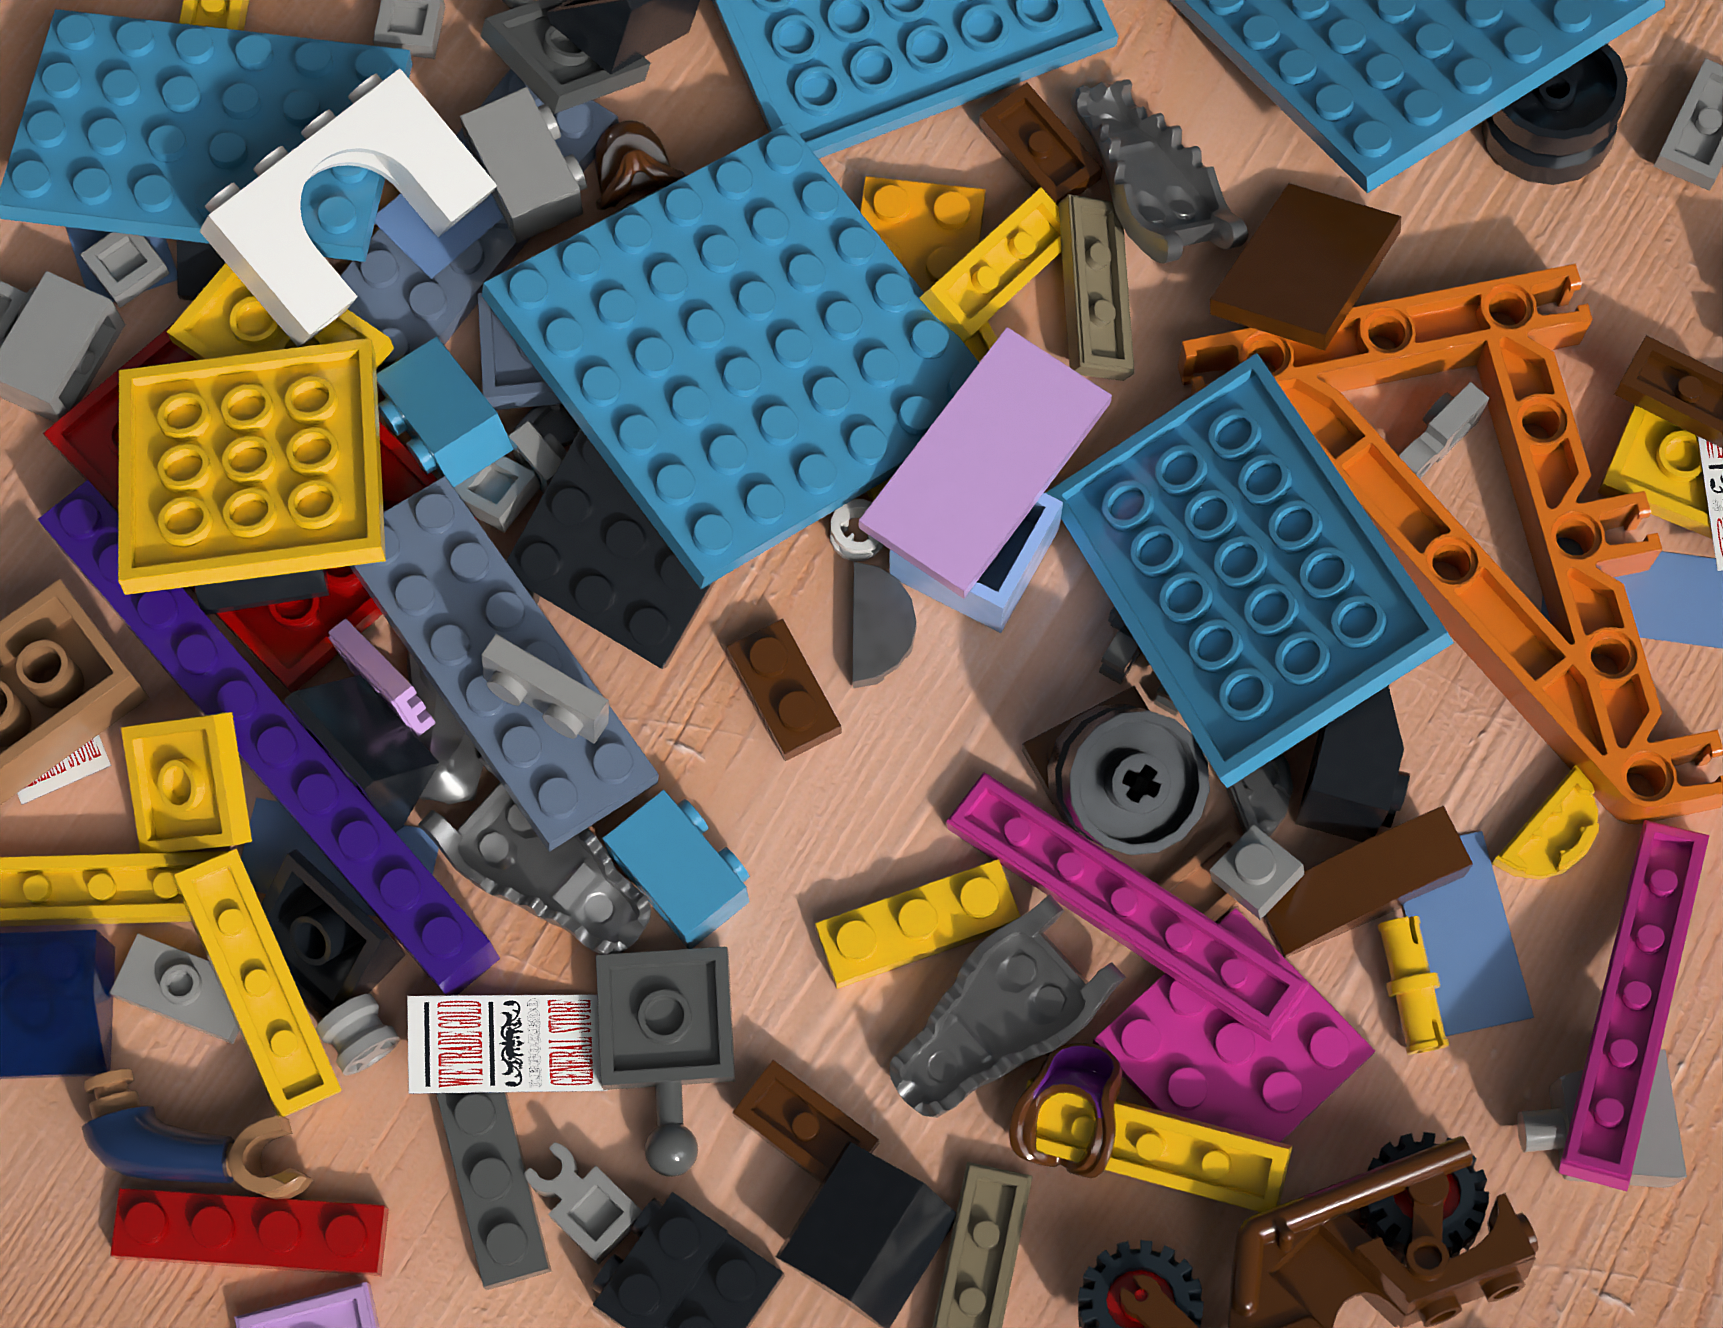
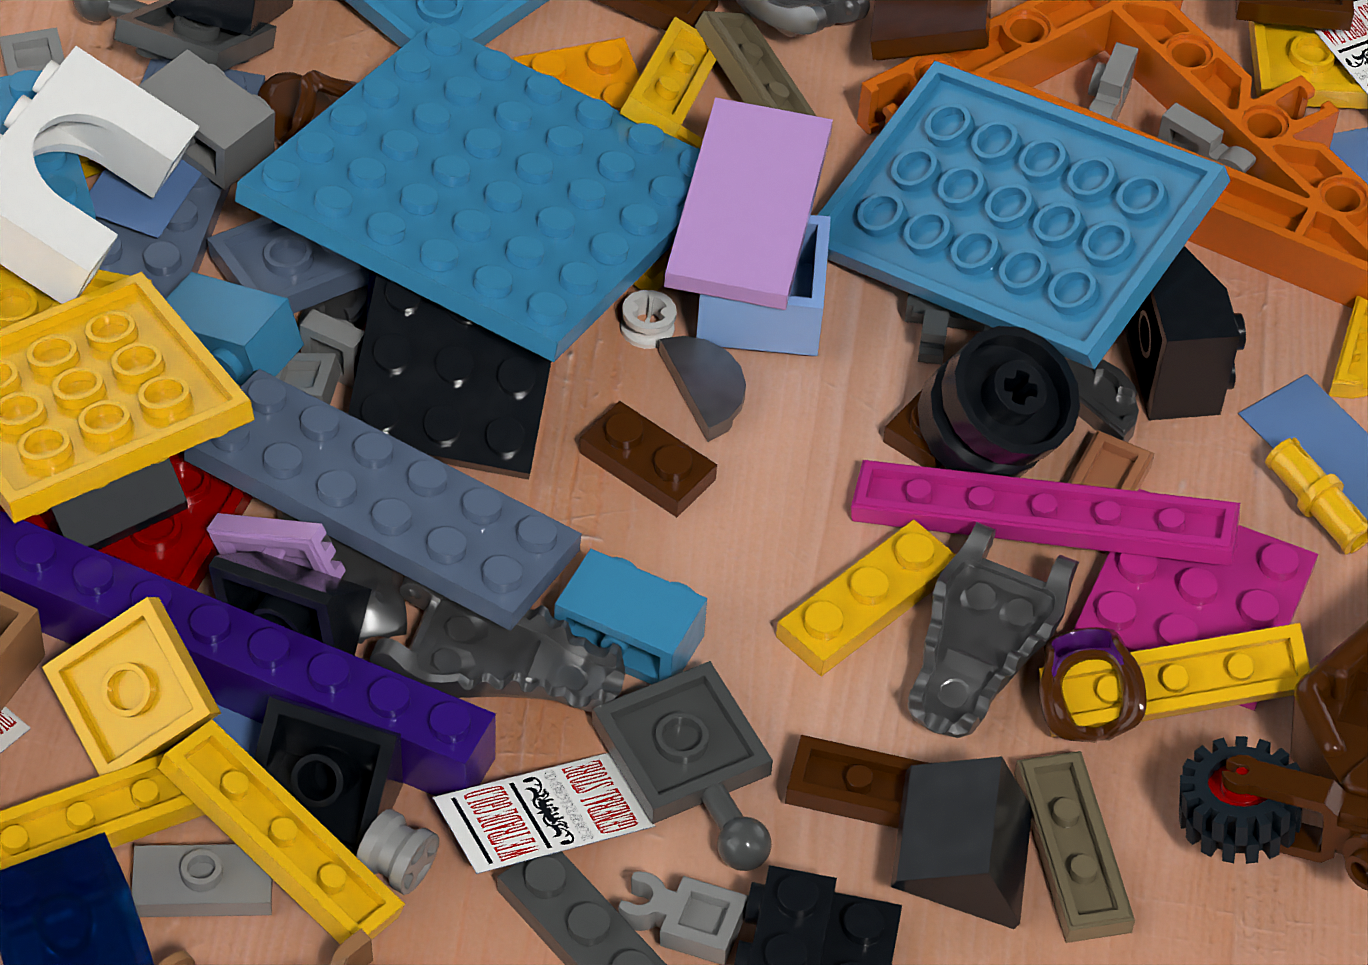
camera: 30 degrees left, 20 degrees down
(564, 702) = (452, 480): light grey plate -> none
(1257, 872) = (1144, 448): light grey plate -> none
(1369, 881) = (1240, 425): reddish brown slope -> none
(1500, 529) = (1202, 137): none -> light grey plate

